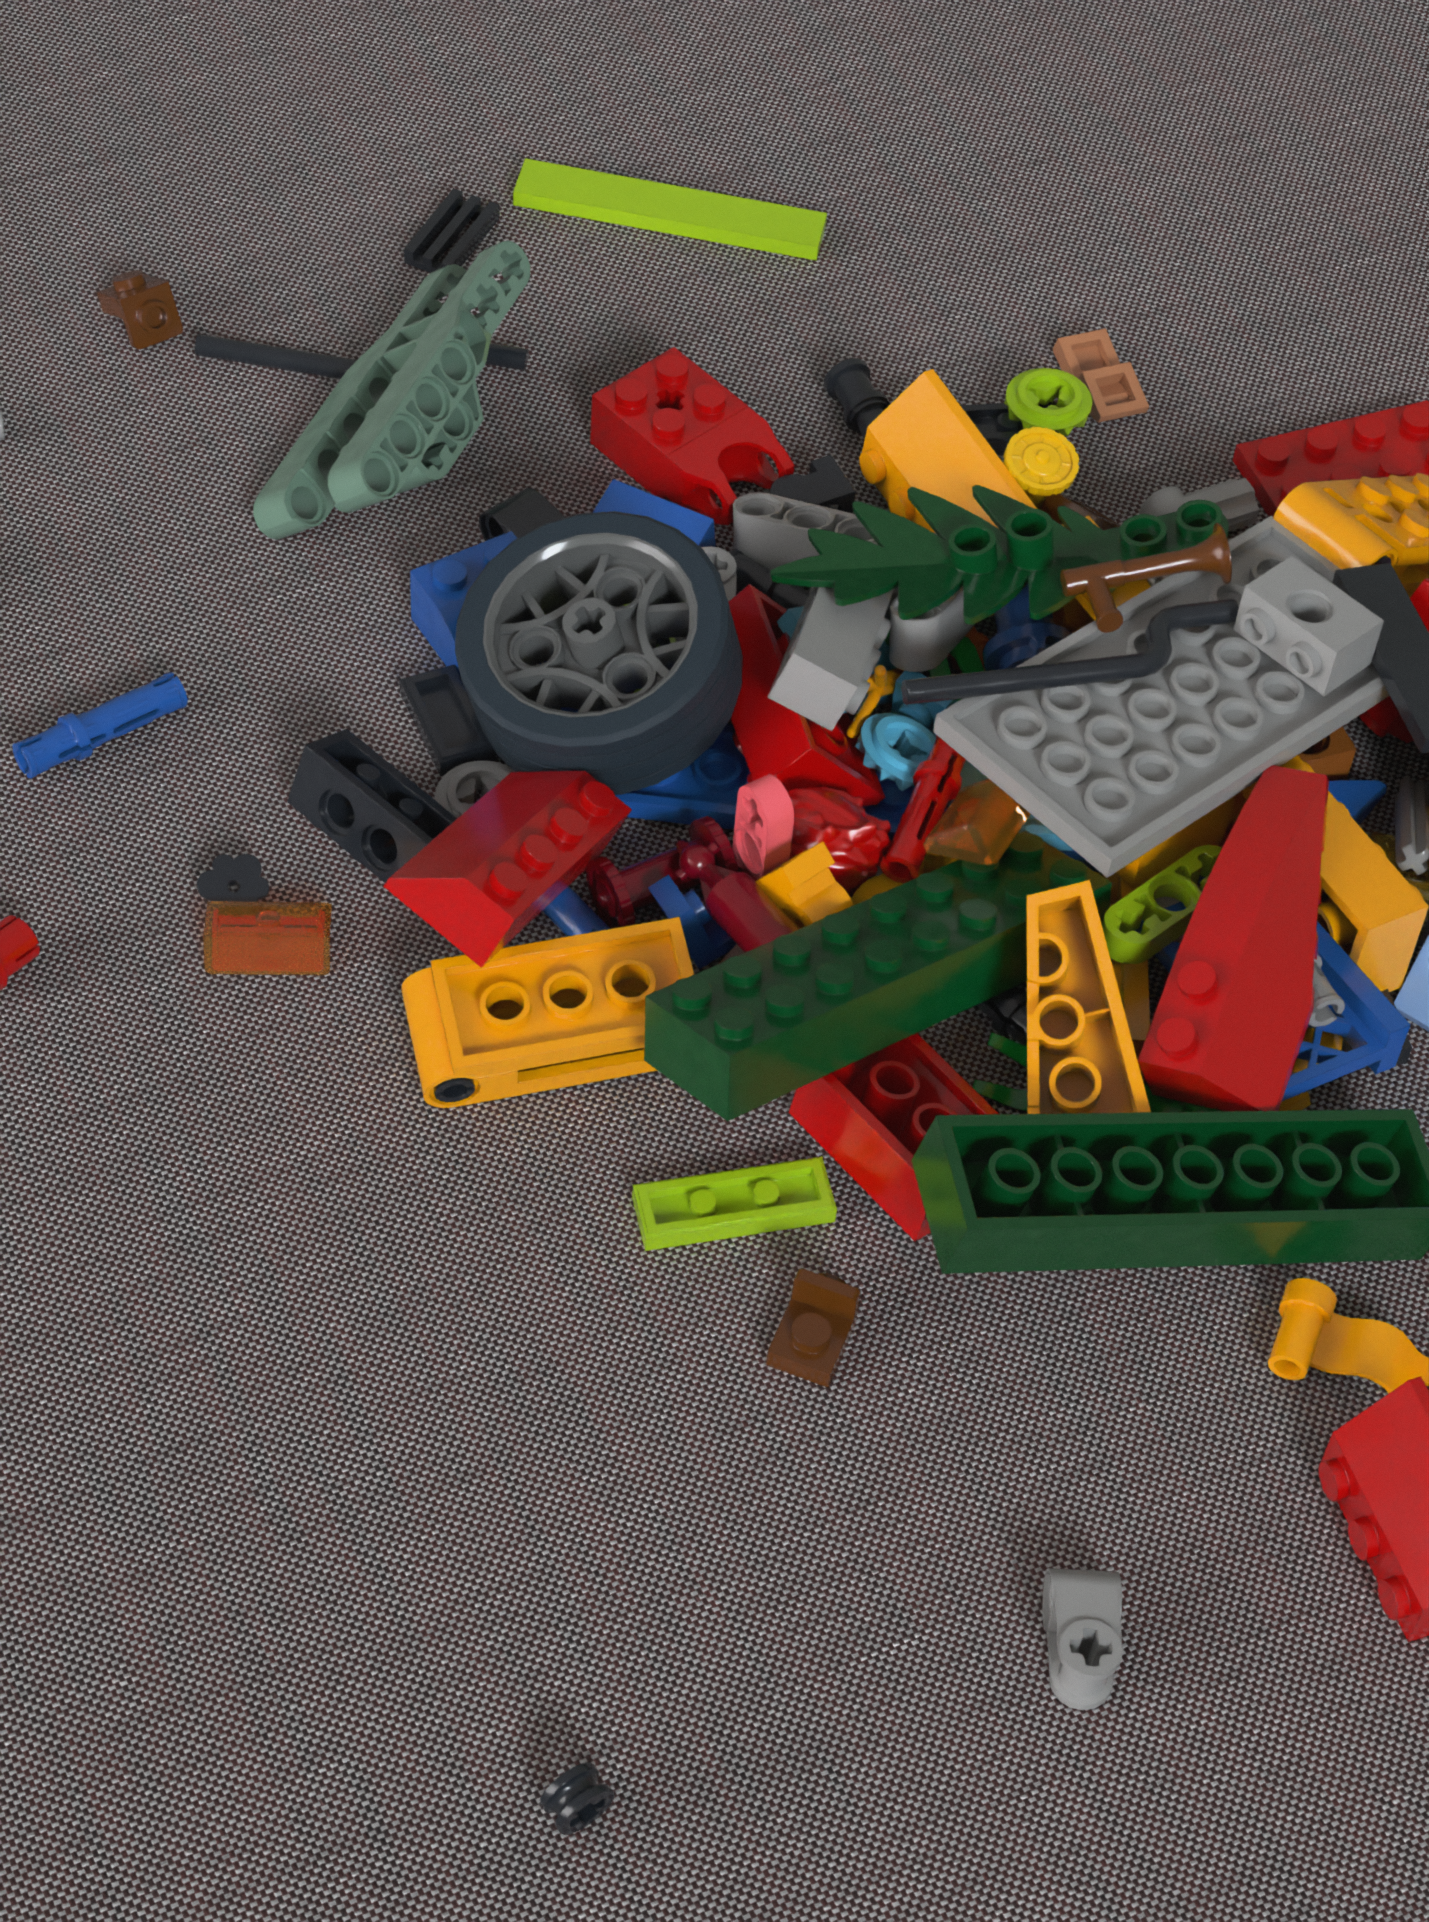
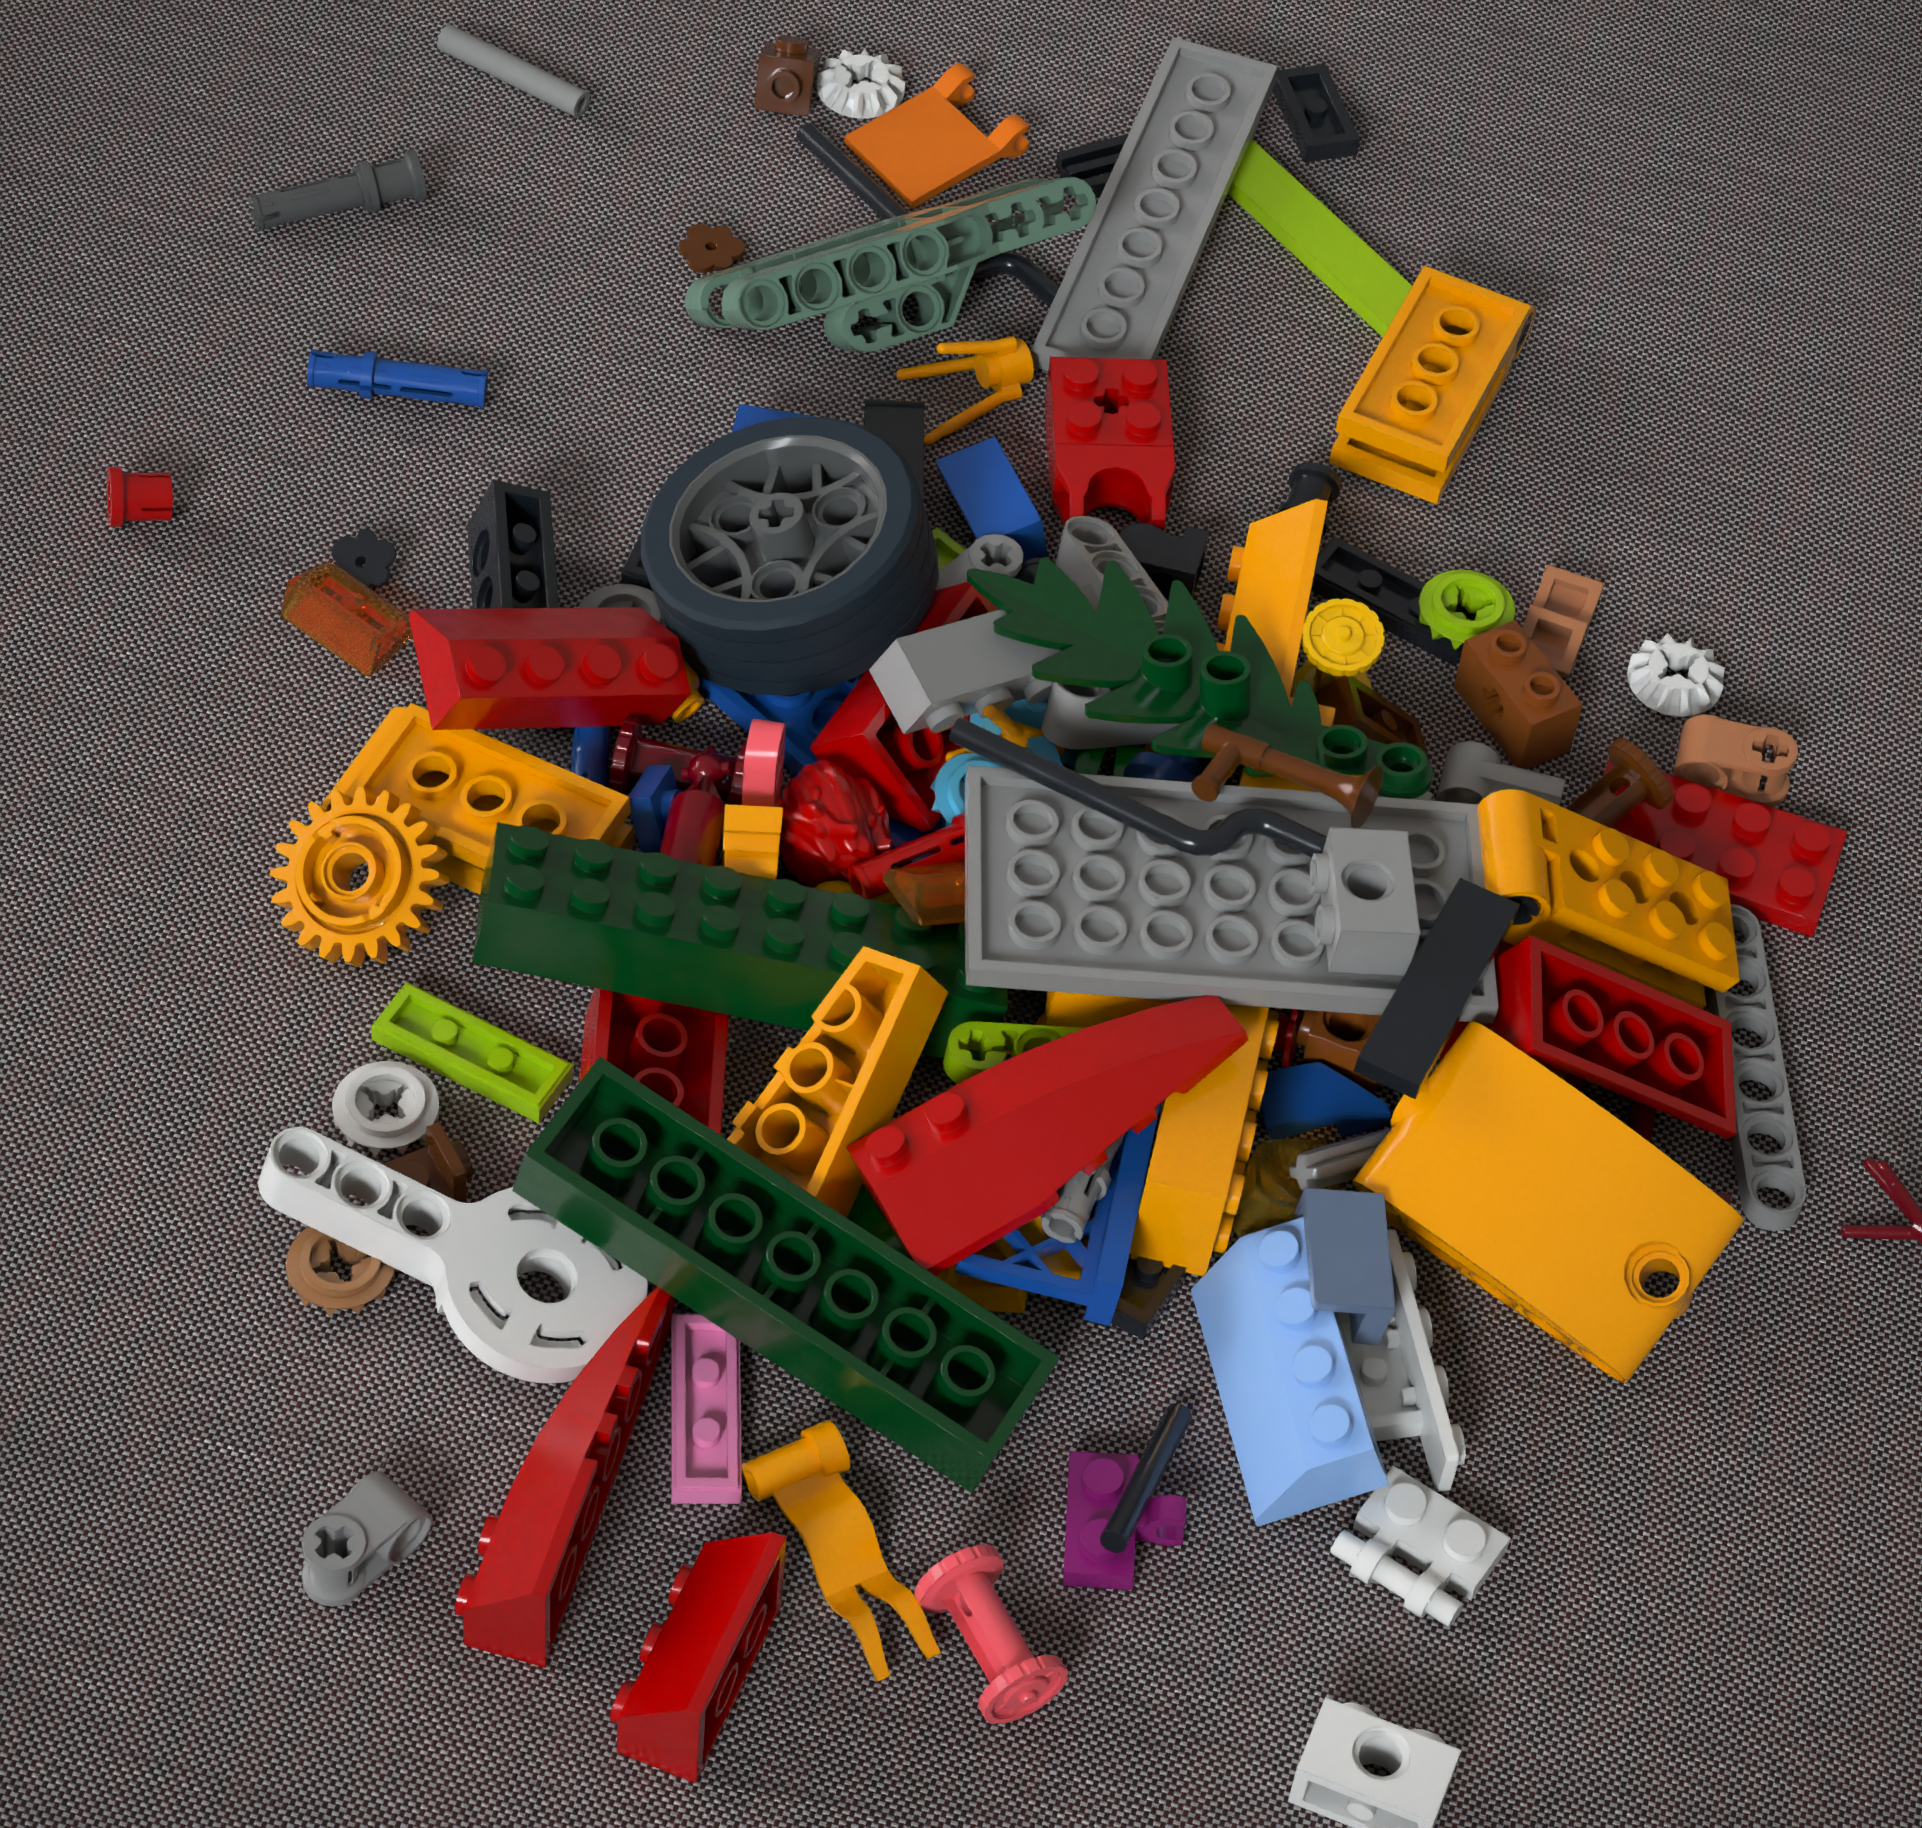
camera: 40 degrees right, 0 degrees up
(219, 293) = (864, 98): none -> white gear
(226, 474) = (710, 248): none -> reddish brown plant
(298, 300) = (931, 144): none -> orange flag
(506, 192) = (1157, 206): none -> light grey plate
(538, 433) = (997, 364): none -> light orange plant
(552, 115) = (1315, 113): none -> black plate
(569, 1119) = (390, 898): none -> light orange gear
(747, 1279) = (383, 1085): none -> white gear
(816, 1414) = (310, 1275): none -> medium nougat gear
(854, 257) = (1430, 384): none -> light orange hinge
(928, 1356) = (465, 1249): none -> white beam
(1142, 439) = (1517, 695): none -> dark orange brick
(1189, 371) = (1675, 694): none -> white gear
(1190, 1342) = (704, 1412): none -> bright pink tile
(1197, 1487) = (560, 1495): none -> red wedge
(1289, 439) = (1632, 769): none -> reddish brown hose
(1315, 392) = (1732, 758): none -> nougat piece

